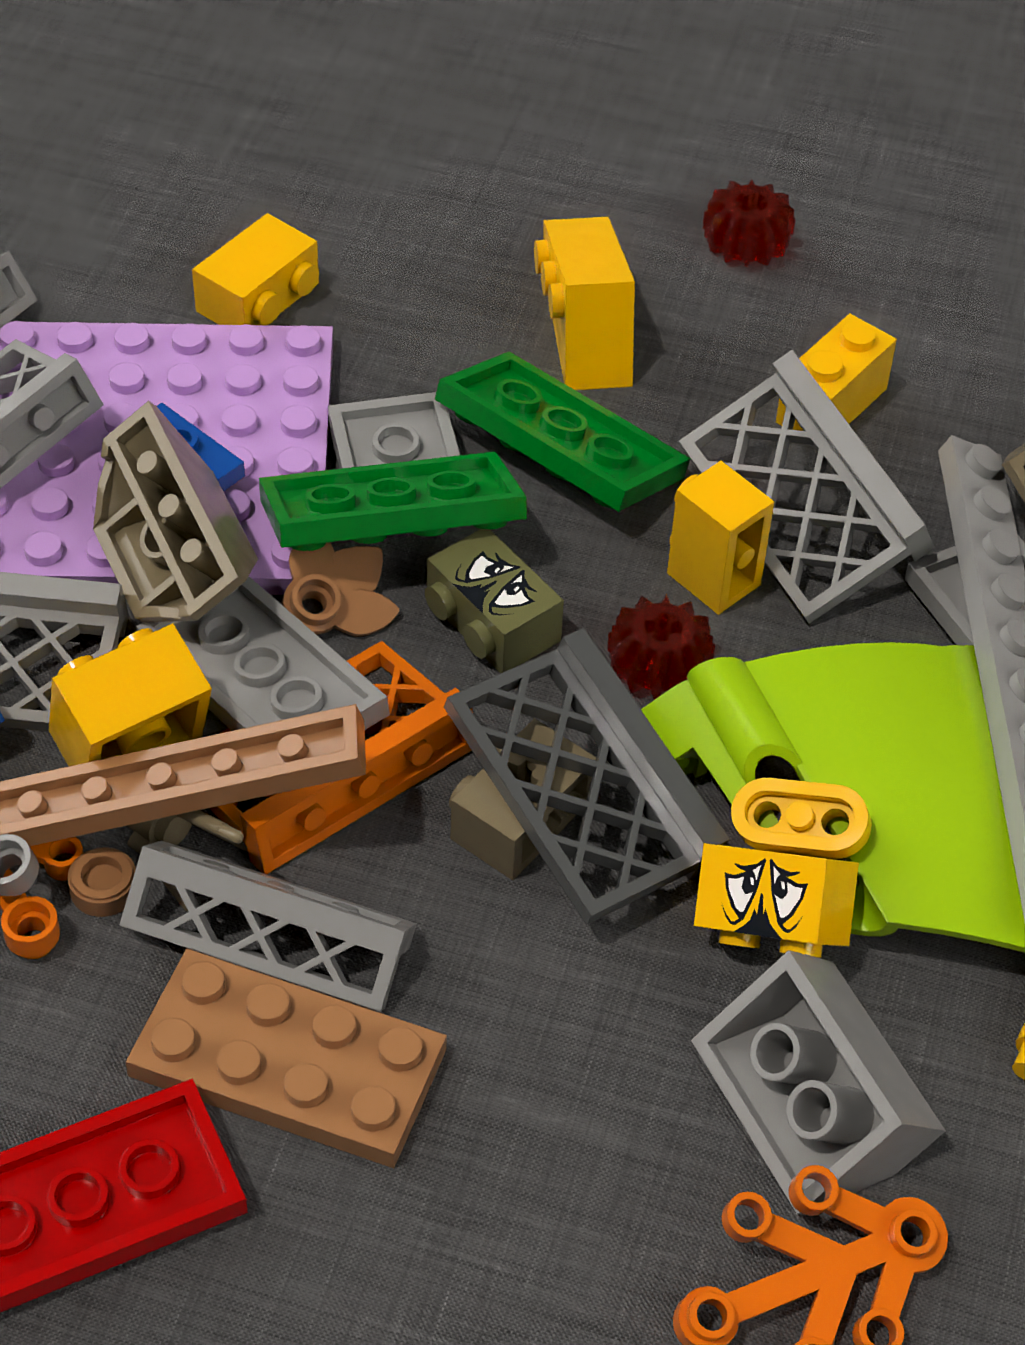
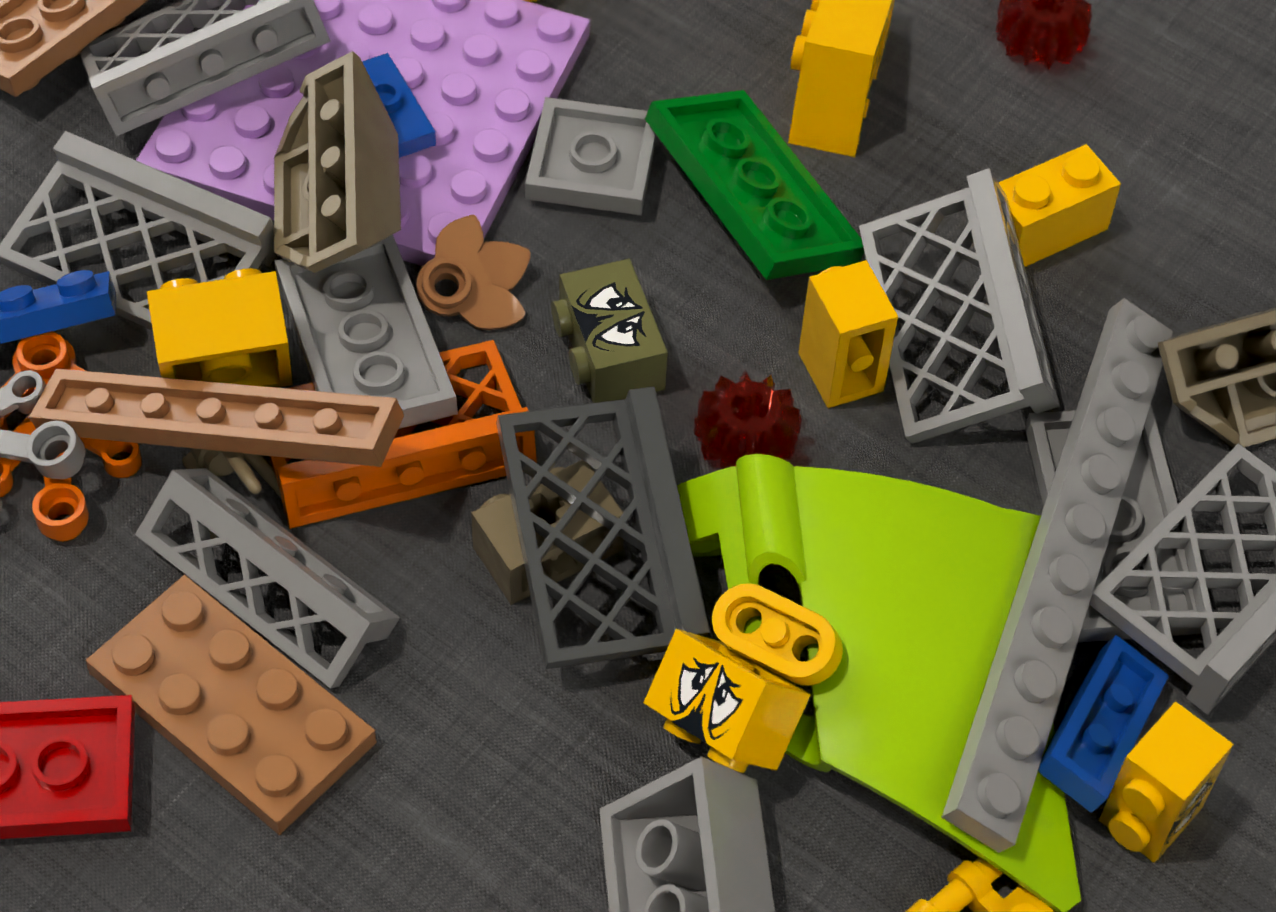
camera: 20 degrees right, 5 degrees up
(101, 881) = (138, 485): medium nougat tile -> none
(391, 500) = (549, 208): green plate -> none

